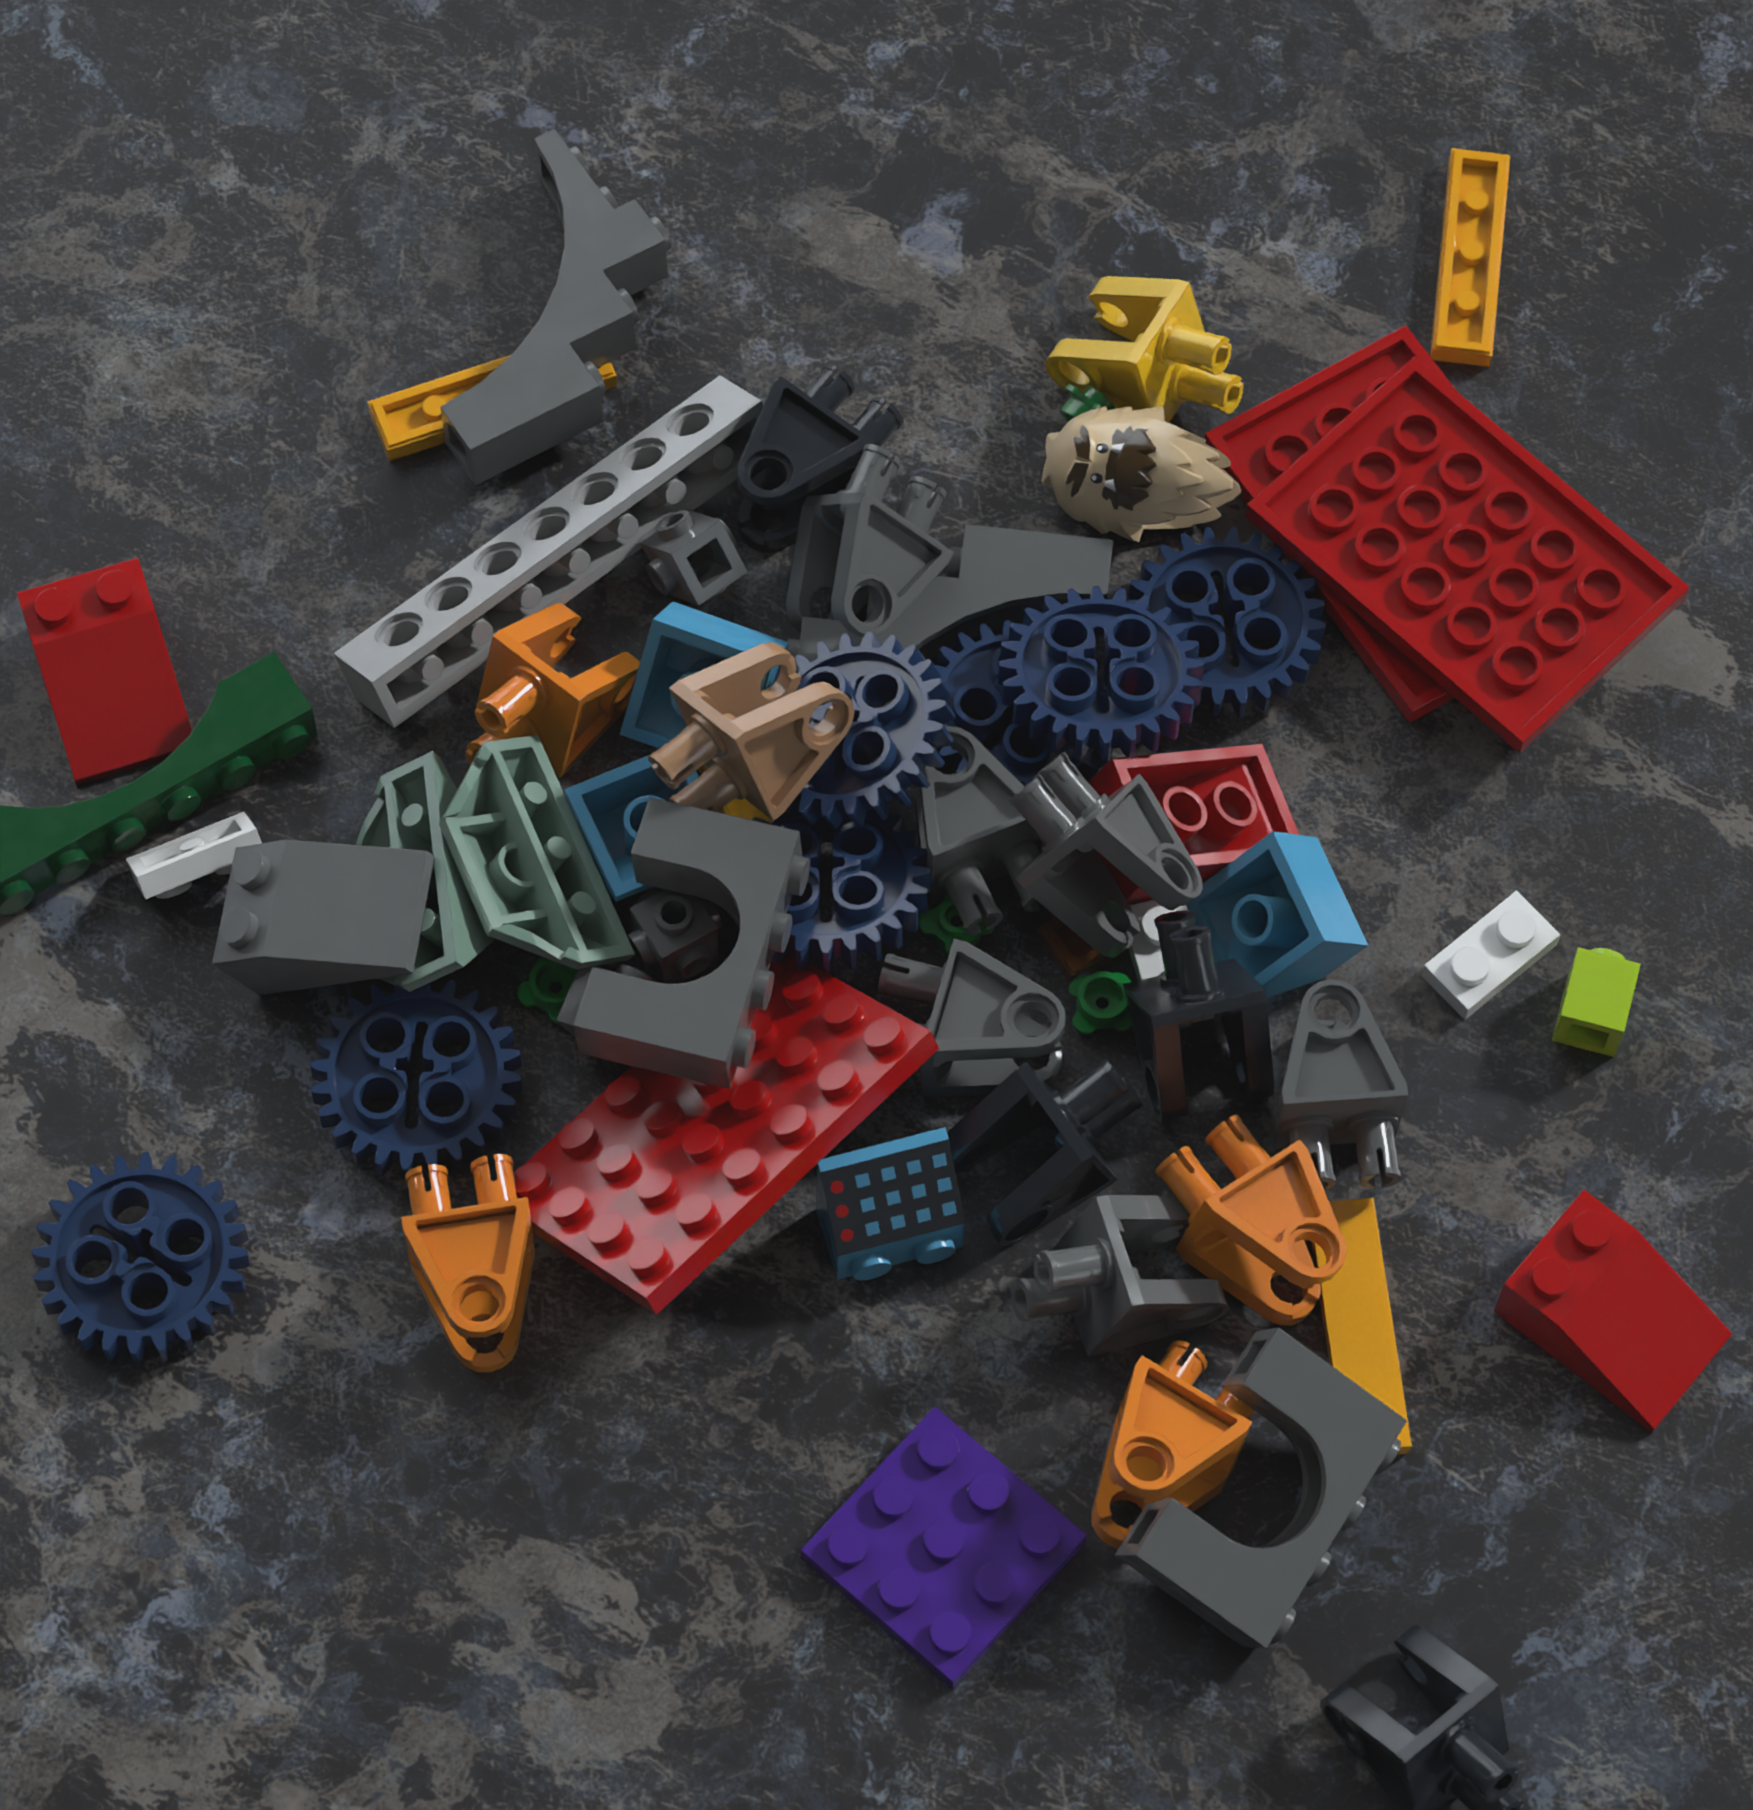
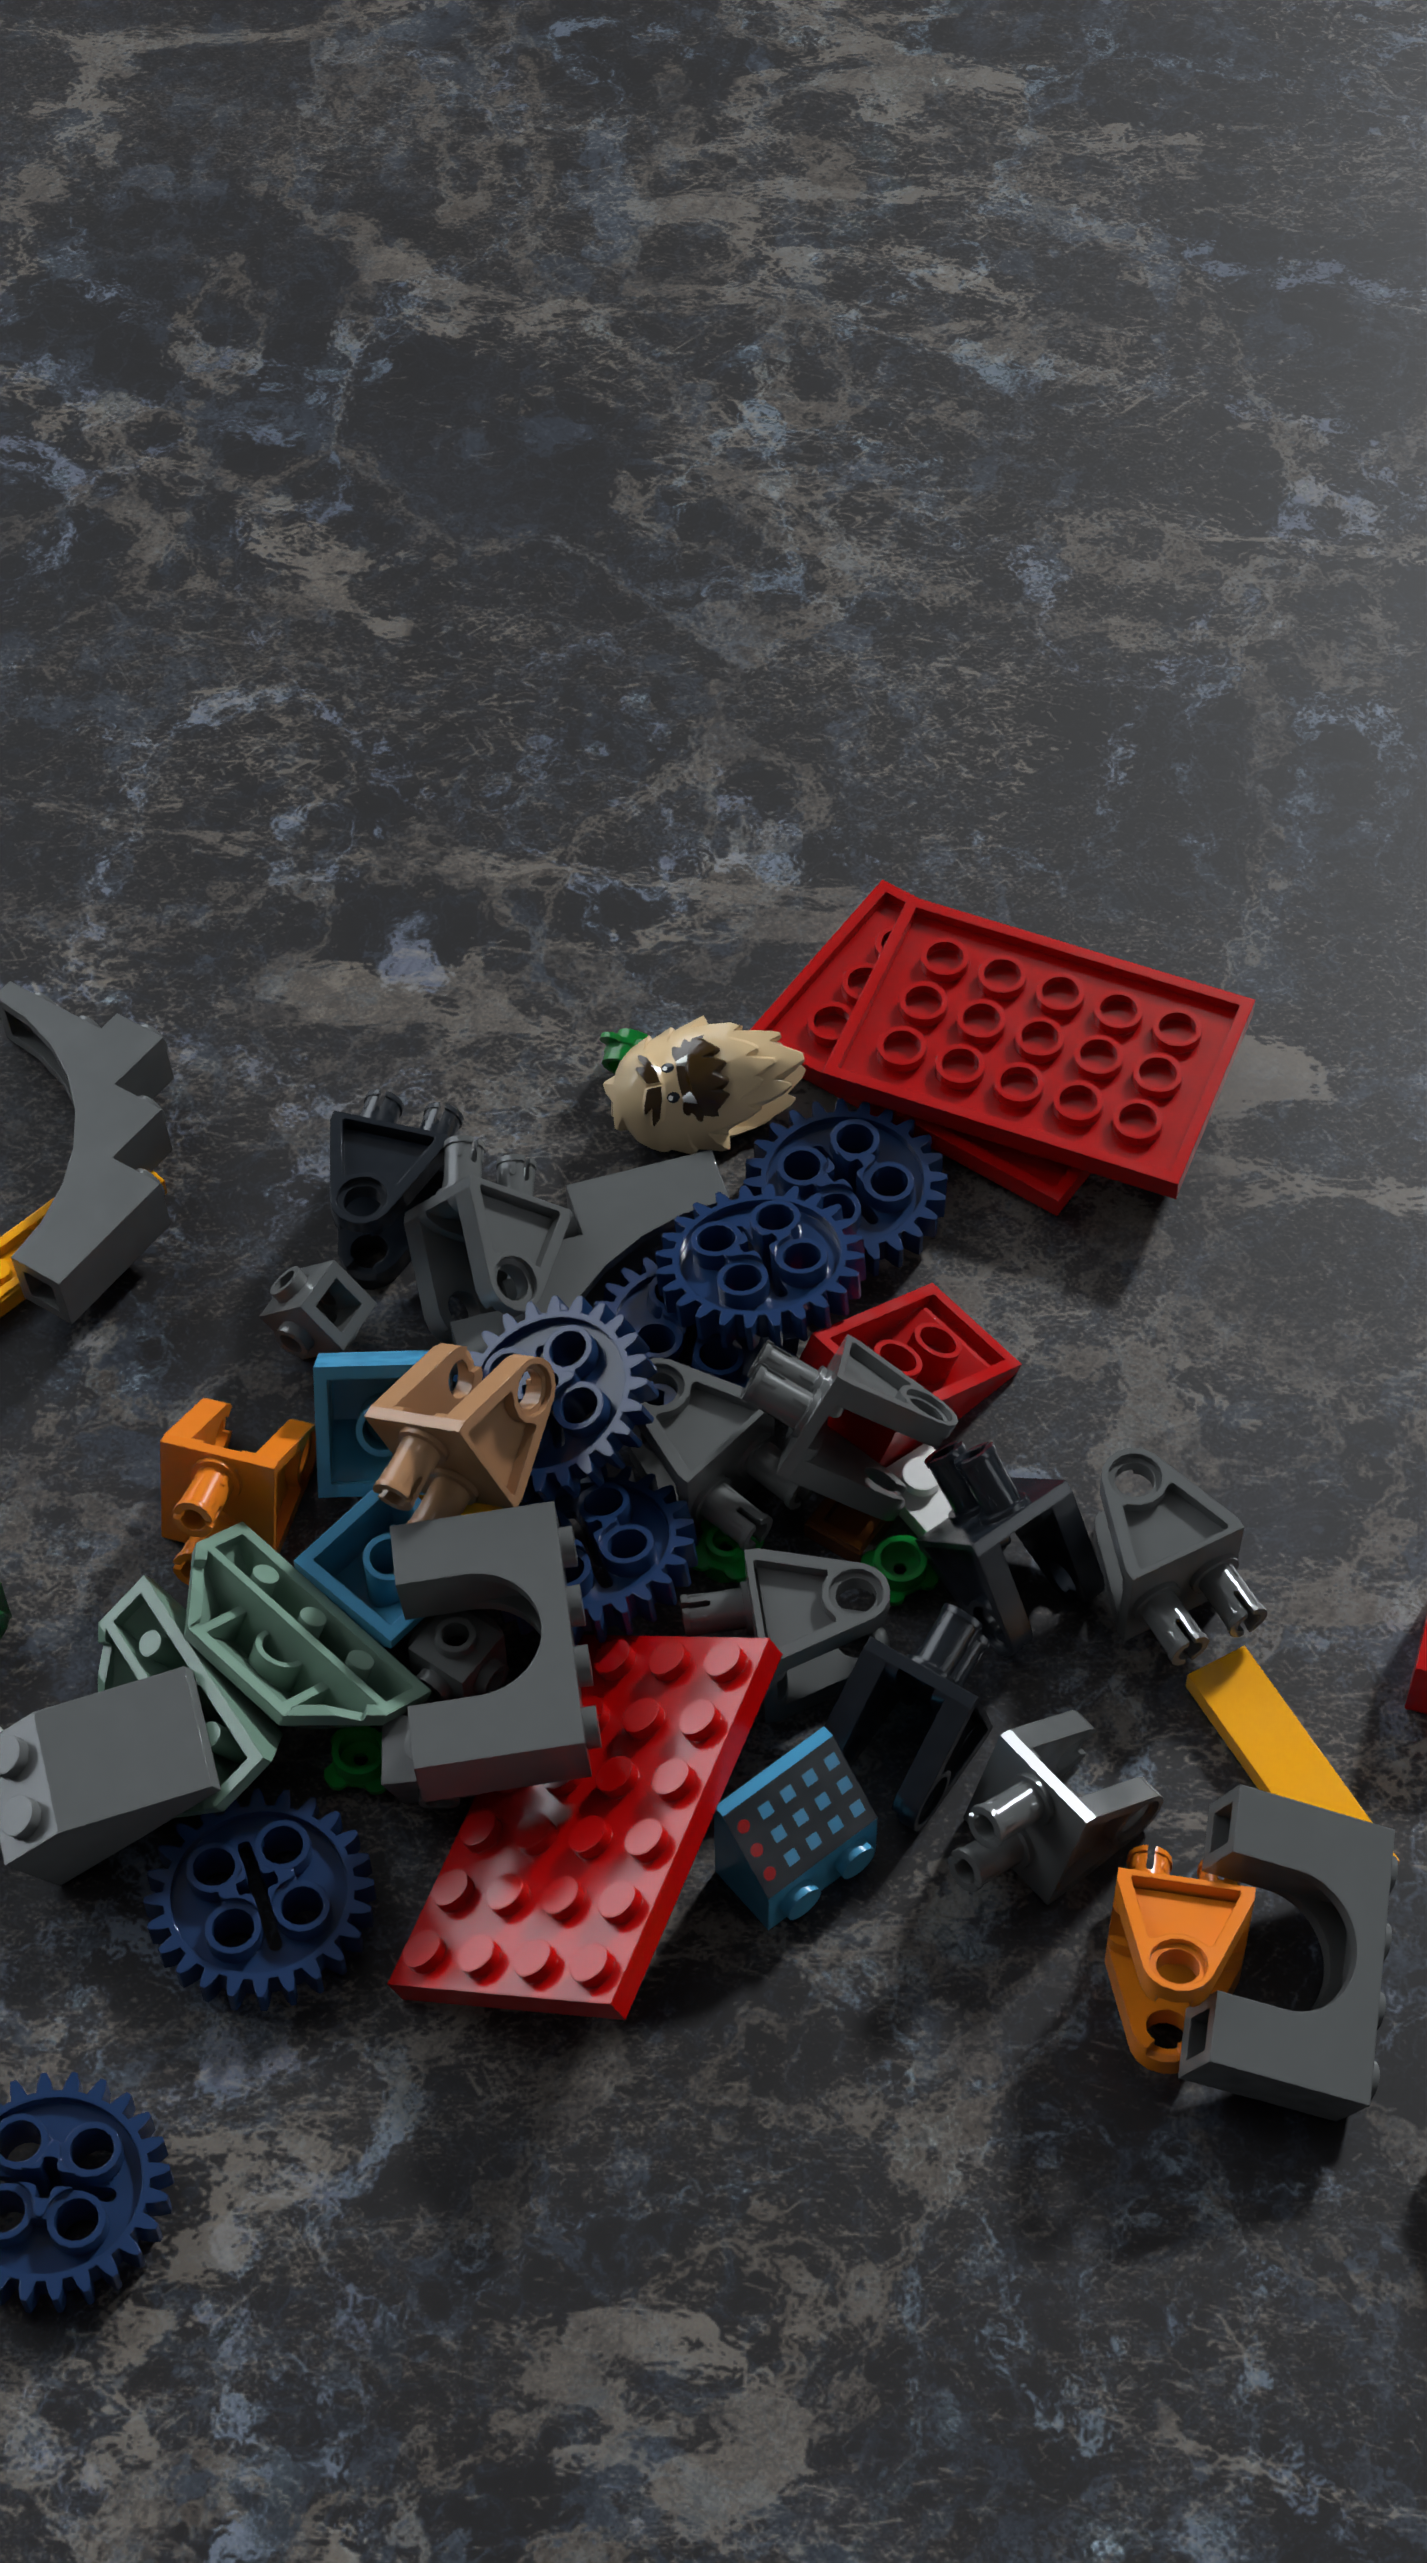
camera: 20 degrees left, 10 degrees down
(472, 1258) = (398, 2053): orange piece -> none
(550, 552) = (173, 1360): light grey brick -> none
(943, 1547) = (1000, 2146): dark purple plate -> none
(1168, 354) = (664, 975): yellow piece -> none
(1257, 1221) = (1157, 1705): orange piece -> none
(1280, 913) = (1034, 1415): dark azure slope -> none
(1470, 257) = (907, 809): light orange tile -> none
(1490, 955) = (1235, 1389): white plate -> none
(1596, 1000) = (1356, 1390): lime brick -> none

